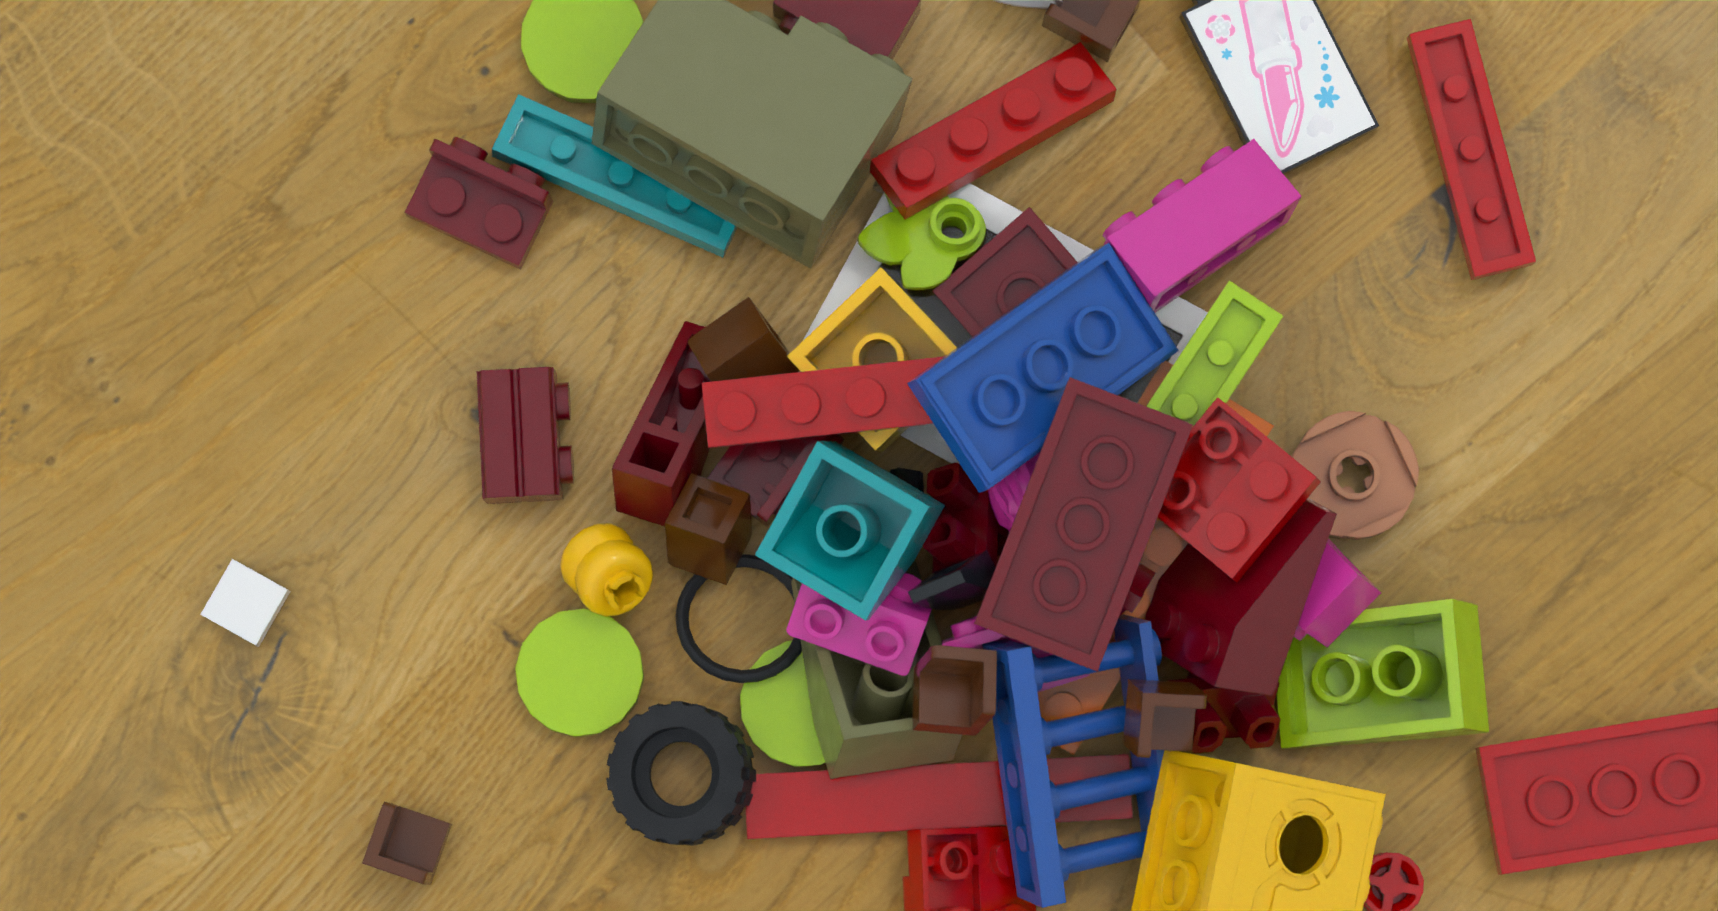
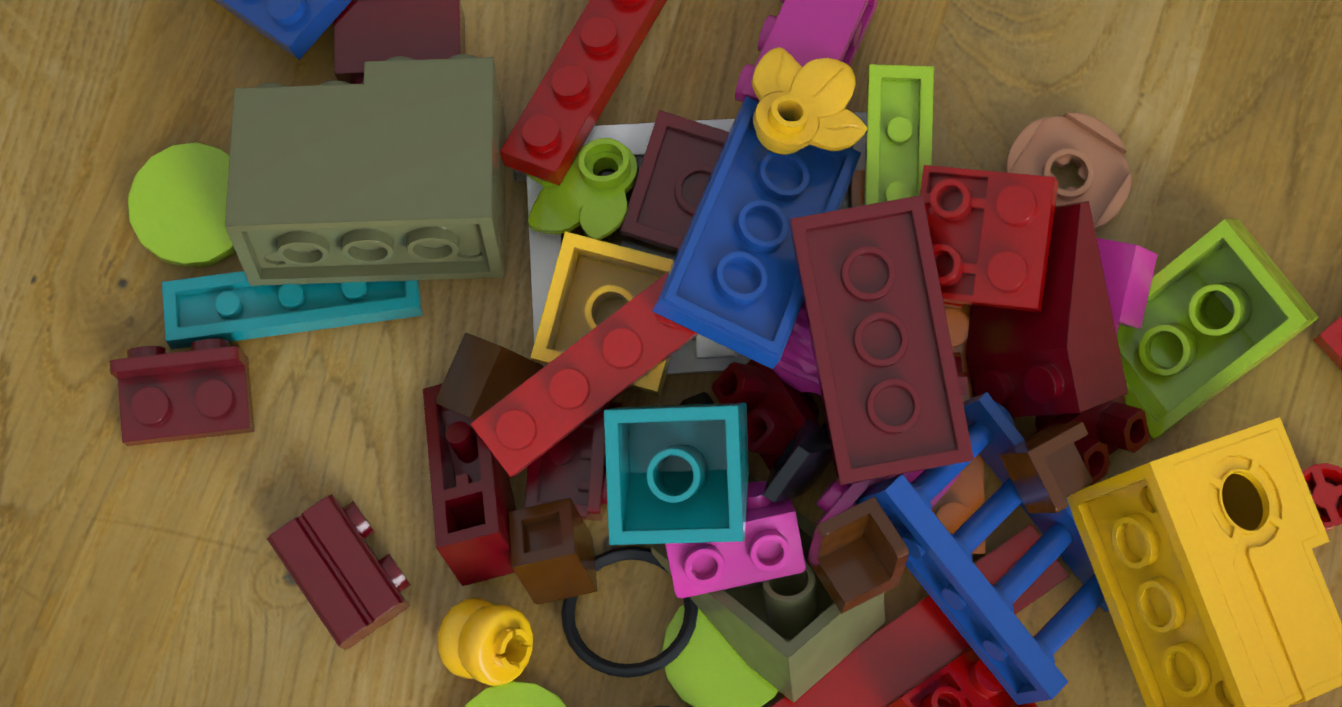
camera: 30 degrees left, 5 degrees down
(1161, 278) = (807, 96): none -> yellow plate

